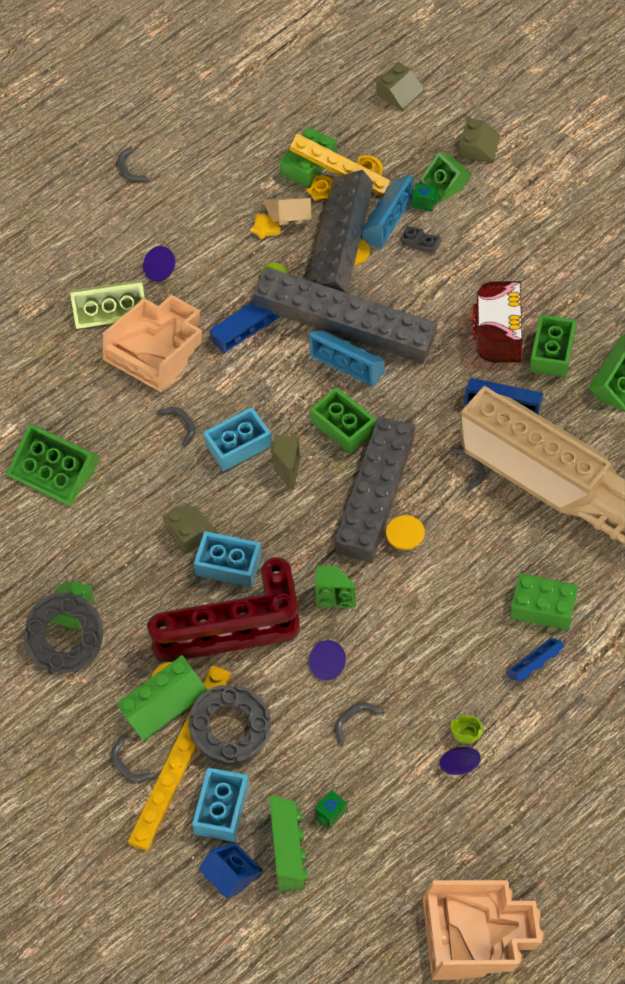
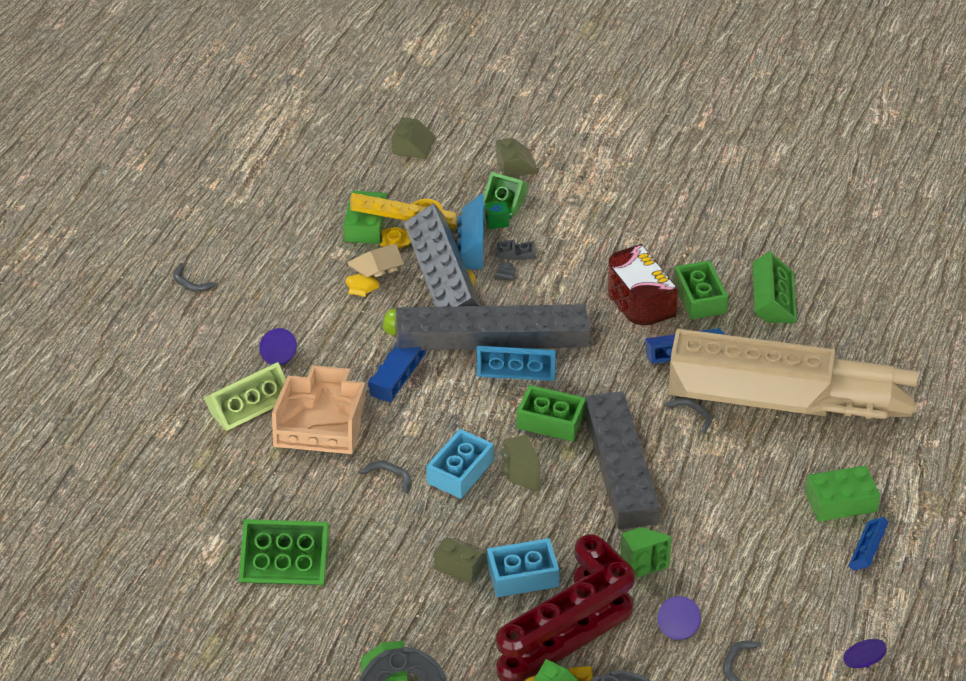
camera: 30 degrees left, 15 degrees down
(397, 259) = (506, 271): none -> dark grey plate
(405, 532) = (674, 484): yellow piece -> none
(466, 729) = (851, 625): lime hair -> none

